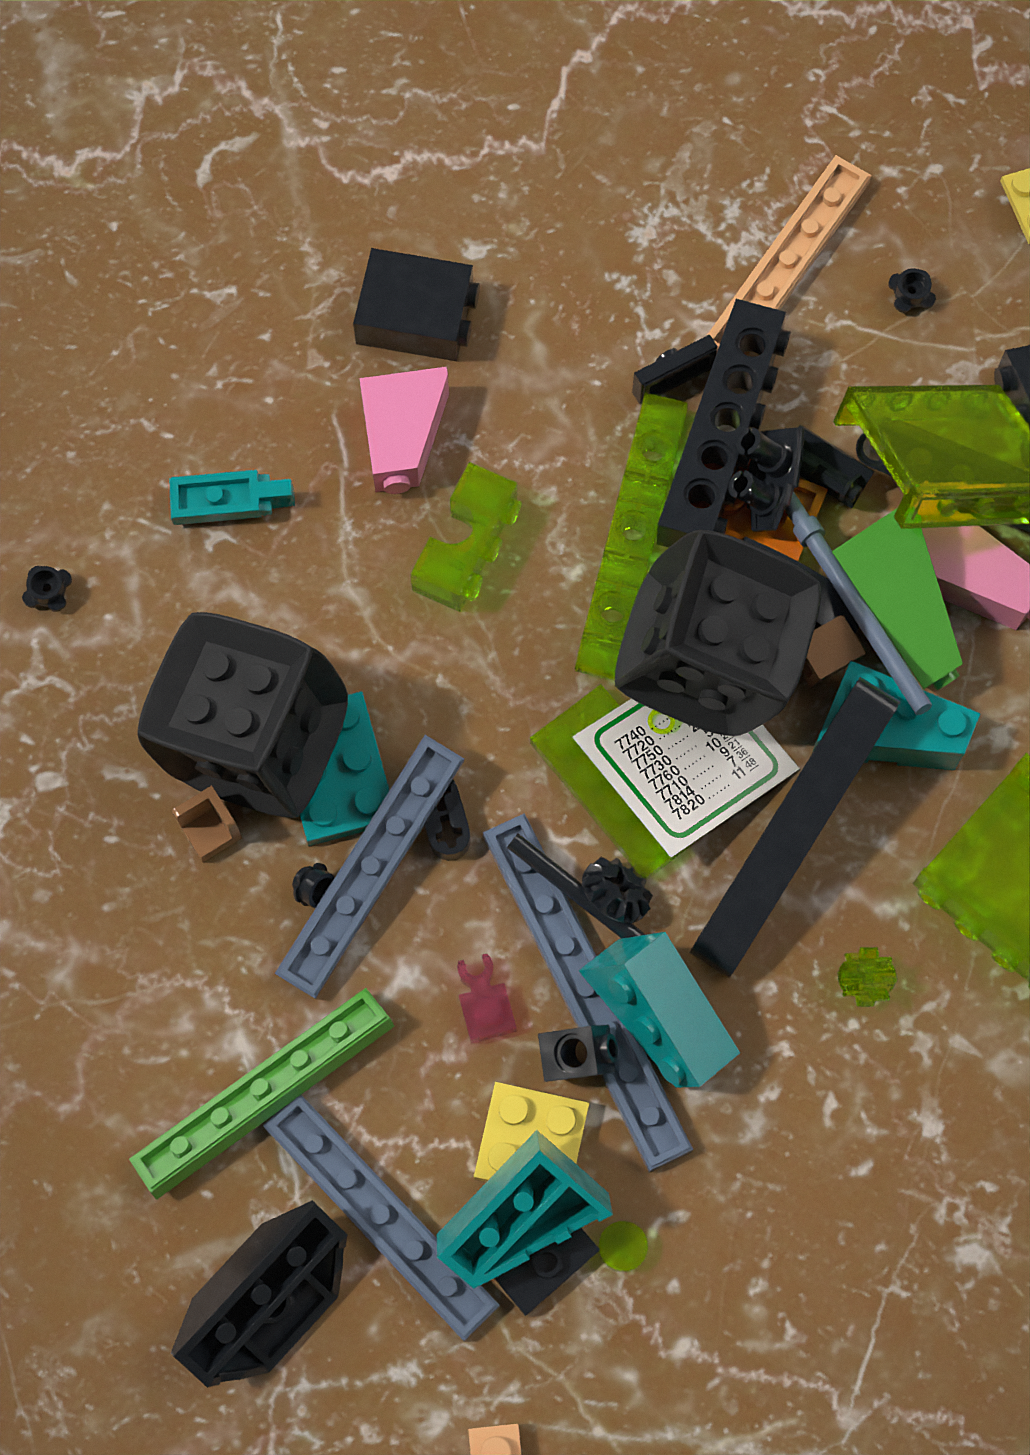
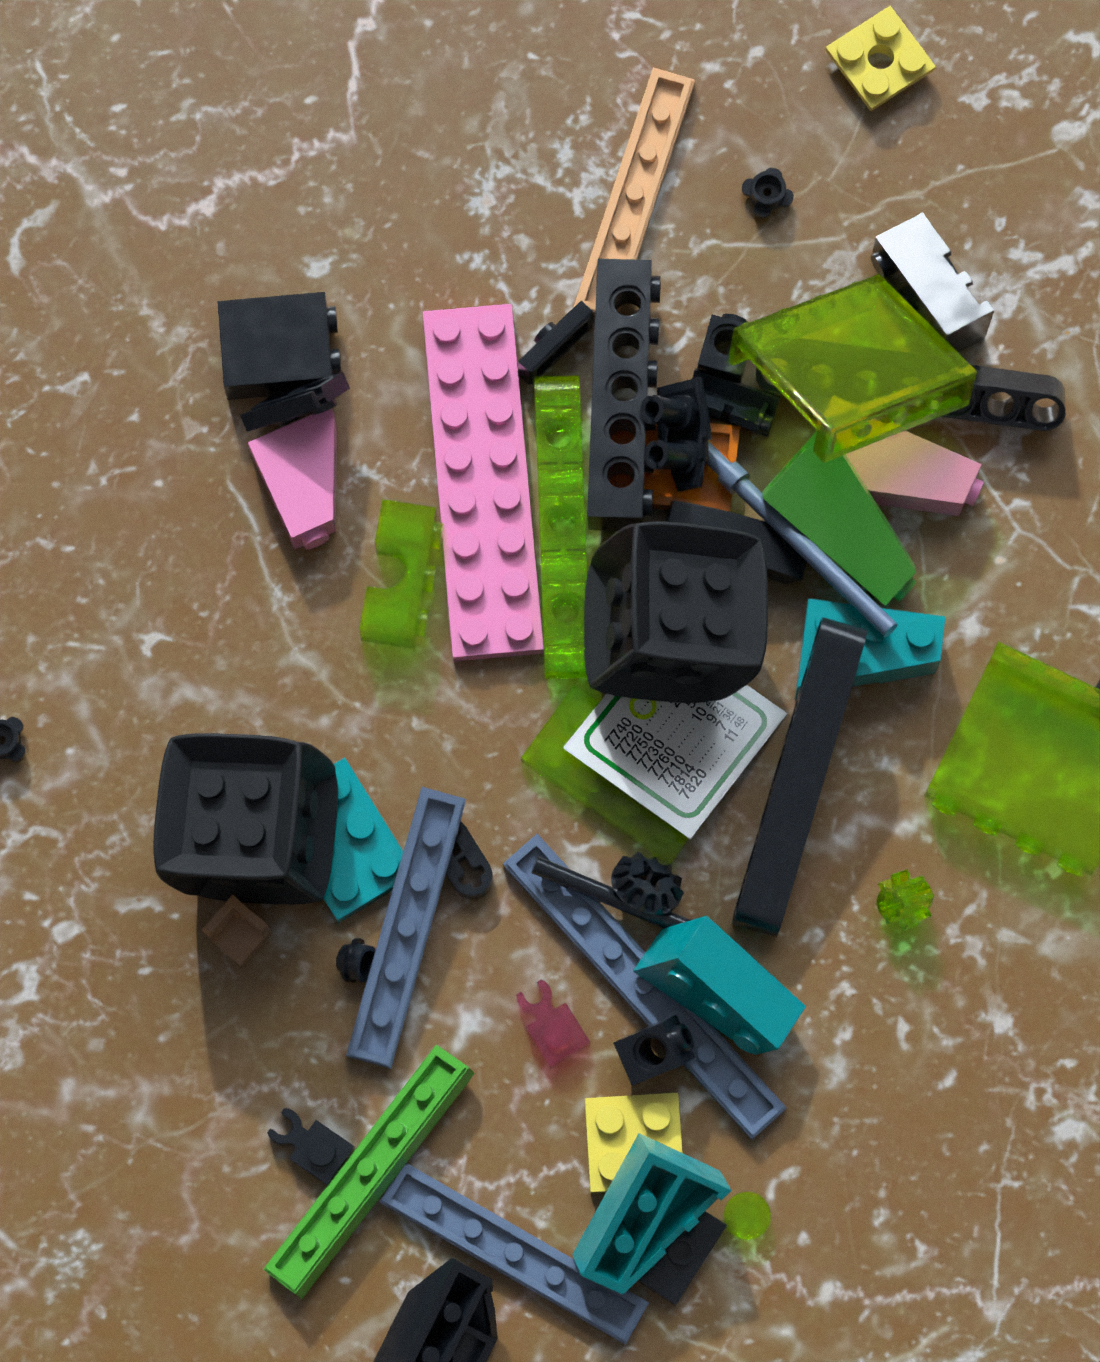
camera: 15 degrees left, 5 degrees up
(219, 1056) = (317, 1149): none -> black plate
(227, 496) = (150, 597): teal hinge -> none
(406, 356) = (292, 403): none -> black plate
(568, 480) = (483, 483): none -> bright pink plate
(820, 423) = (713, 361): none -> black brick
(831, 651) = (788, 590): medium nougat panel -> none

